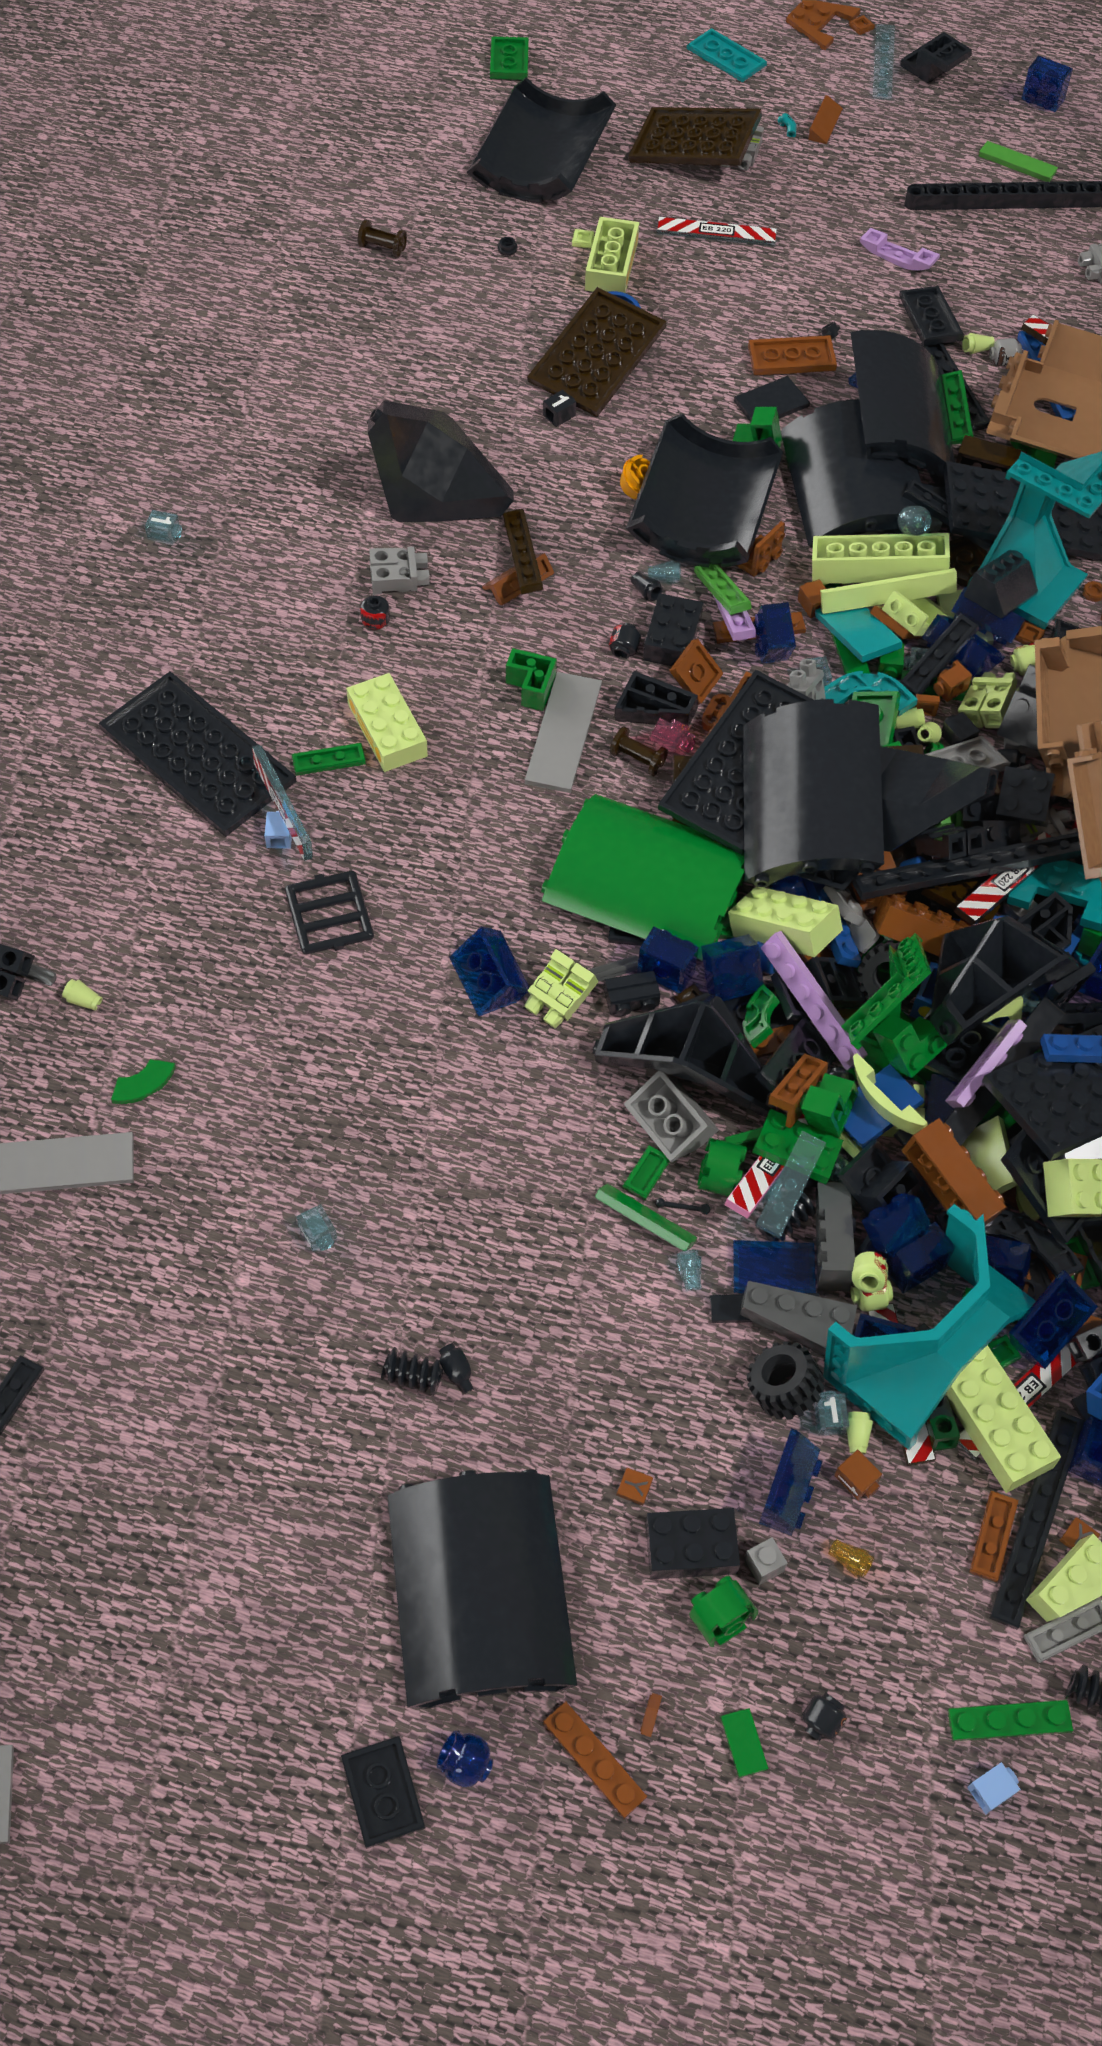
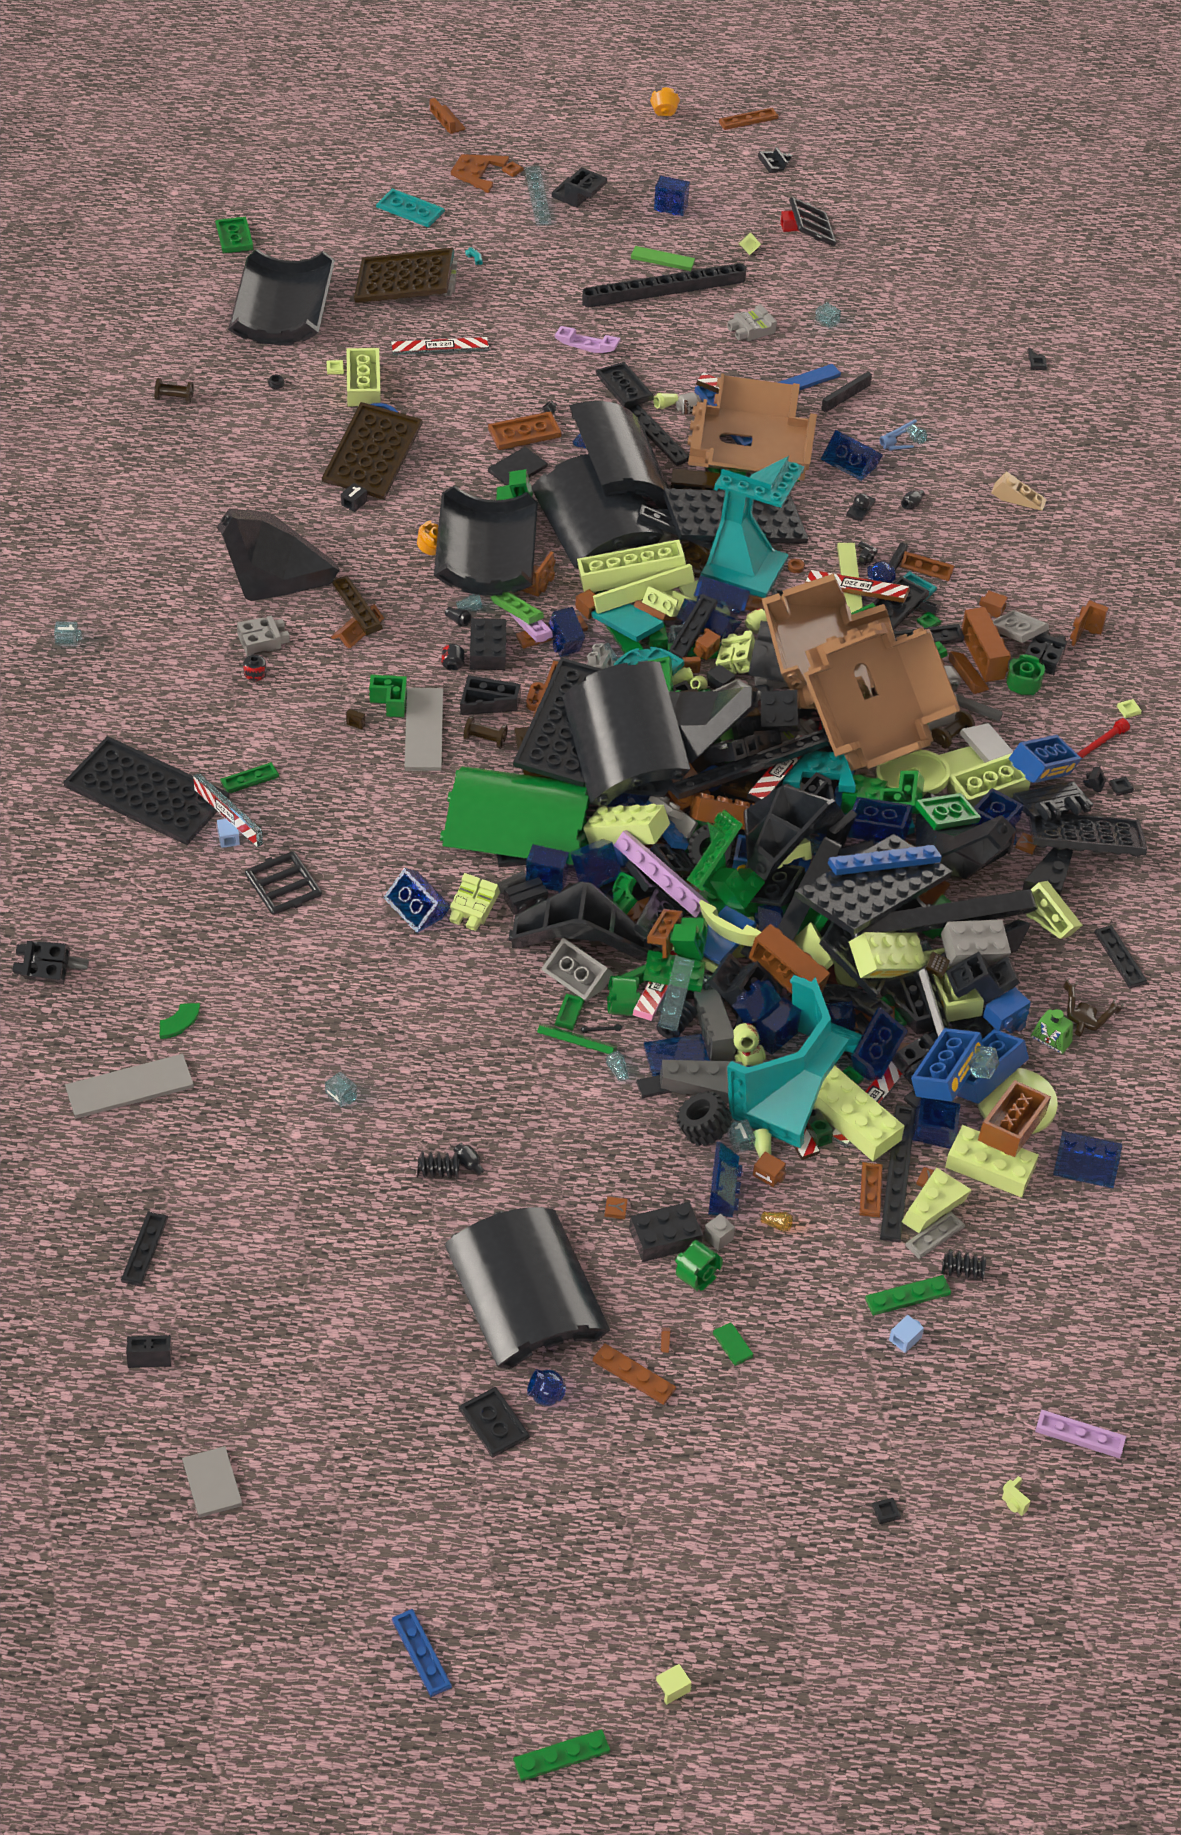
camera: 15 degrees left, 10 degrees down
(81, 995) = (113, 970): yellowish green cone -> none
(387, 722) = (288, 743): yellowish green brick -> none
(480, 703) = (355, 719): none -> dark brown tile
(673, 736) = (509, 715): clear pink brick -> none
(696, 670) = (513, 667): dark orange tile -> none
(824, 1716) = (783, 1315): black head -> none
(825, 120) = (503, 248): dark orange slope -> none
(914, 520) = (651, 534): clear light blue head -> none
(956, 406) = (661, 448): green tile -> none
(992, 1056) = (798, 880): lavender plate -> none
(1003, 584) = (728, 569): black slope -> none

